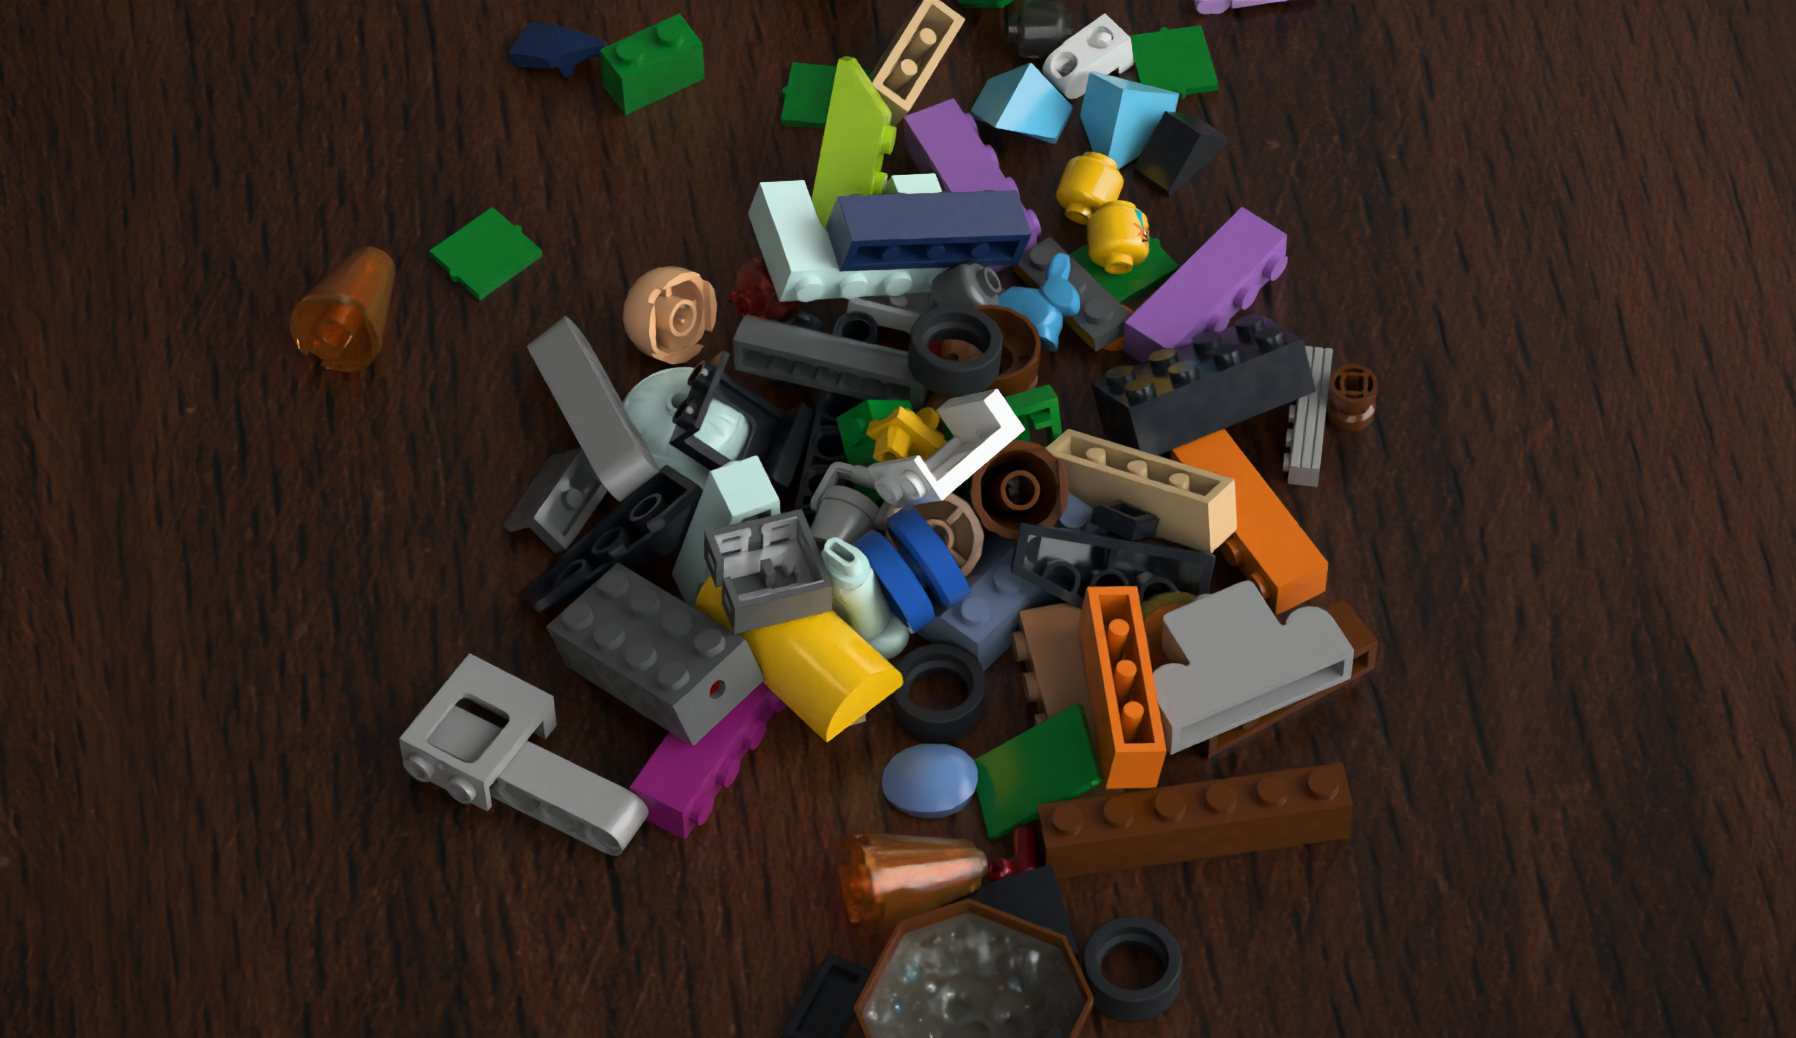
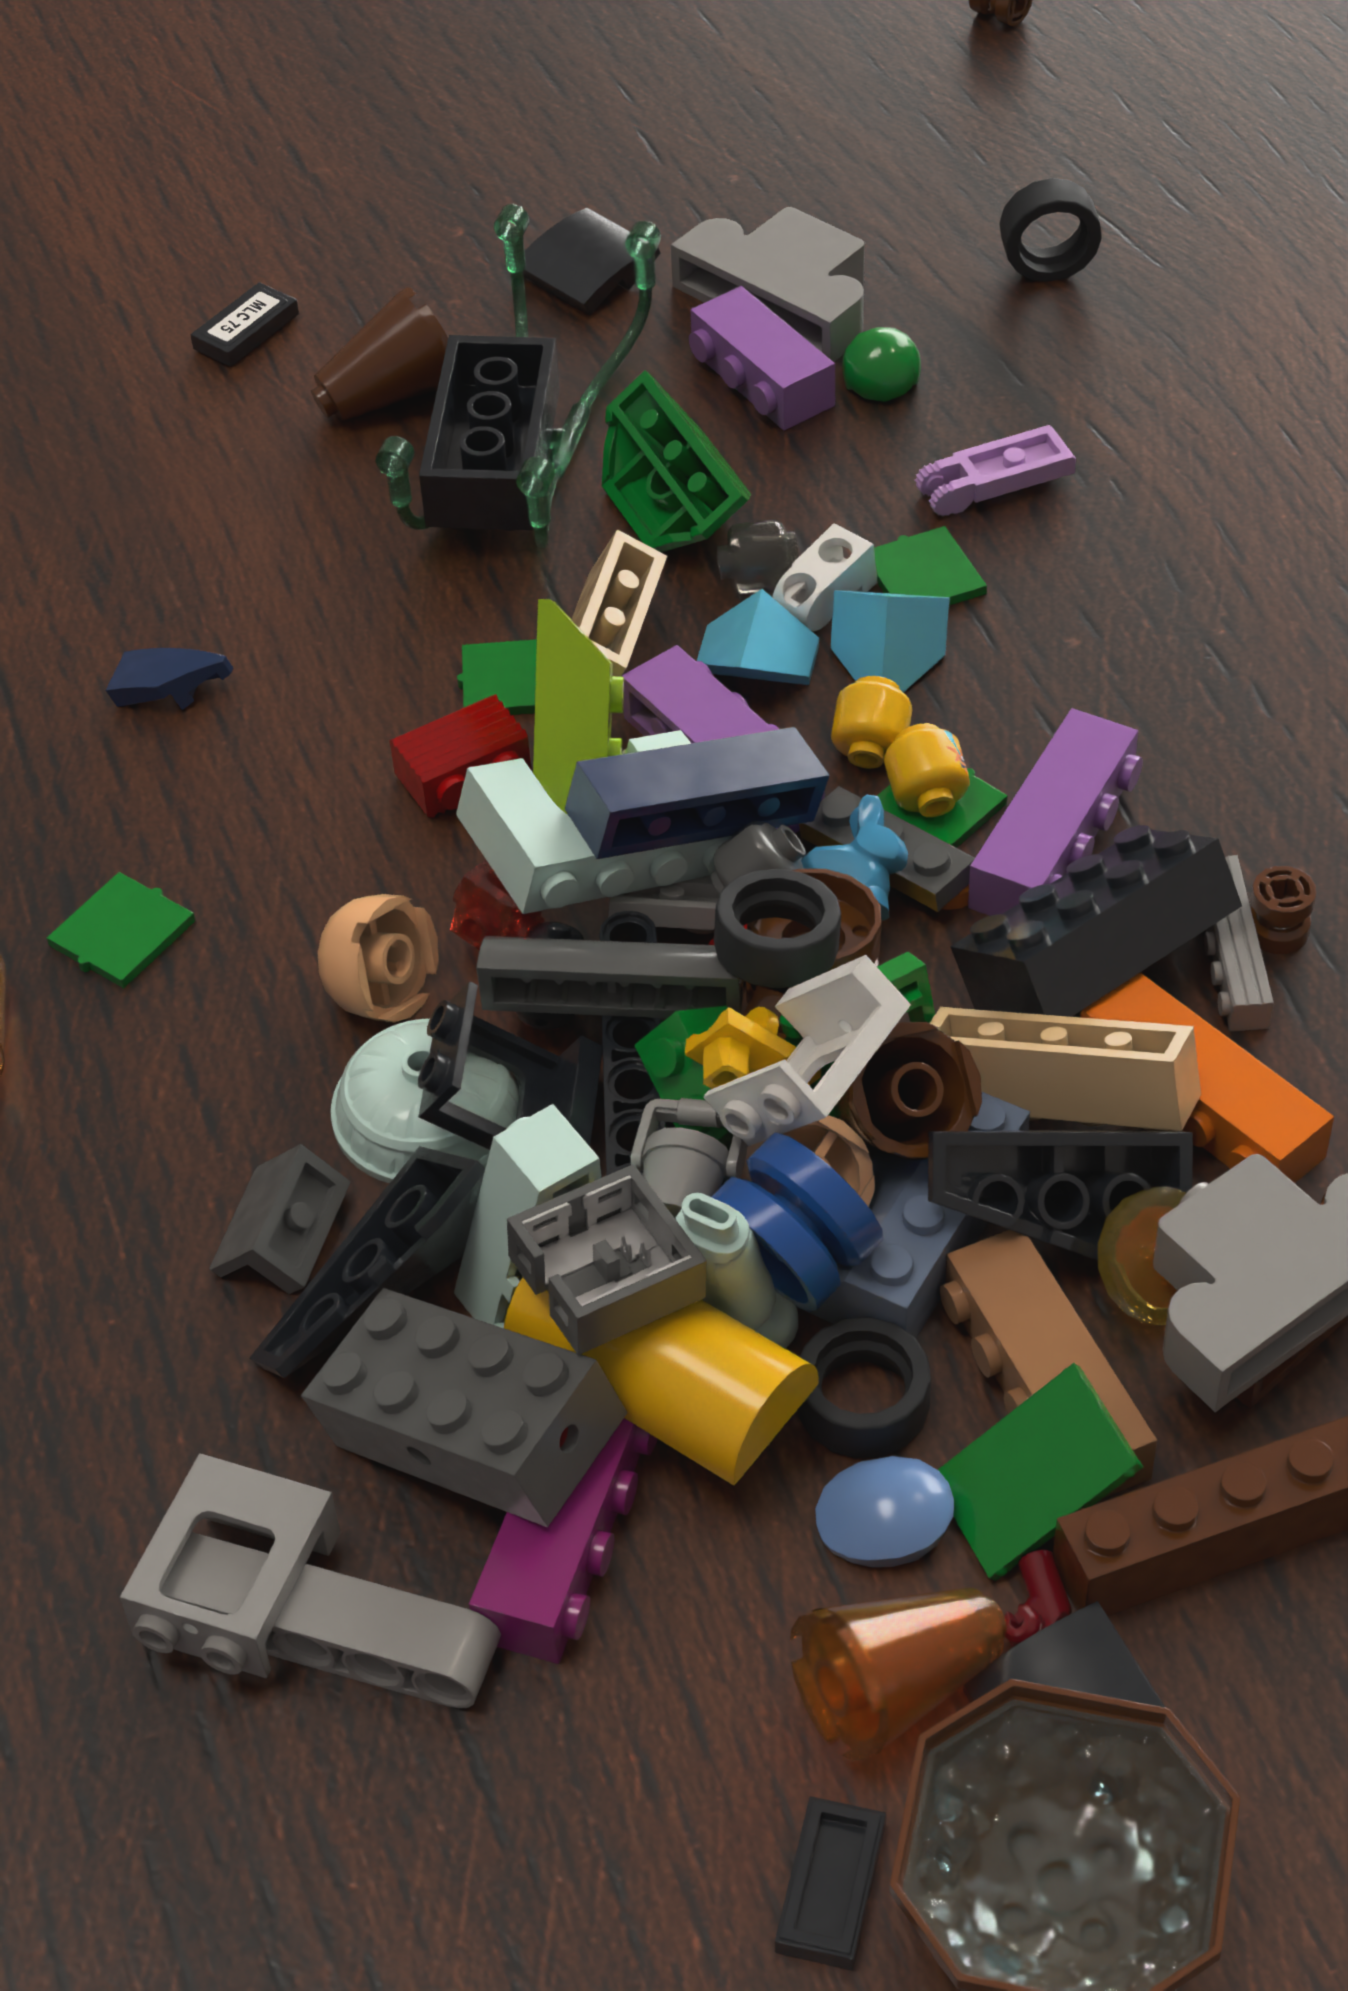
camera: 10 degrees left, 5 degrees down
(593, 409) = (306, 1095): light grey beam -> none
(652, 64) = (289, 671): green brick -> none
(767, 154) = (437, 755): none -> red brick
(1121, 687) = (1132, 1333): orange brick -> none
(1125, 520) = (1058, 1106): black tile -> none
(1140, 934) = (1274, 1684): black tyre -> none
(1178, 151) = (962, 667): black slope -> none

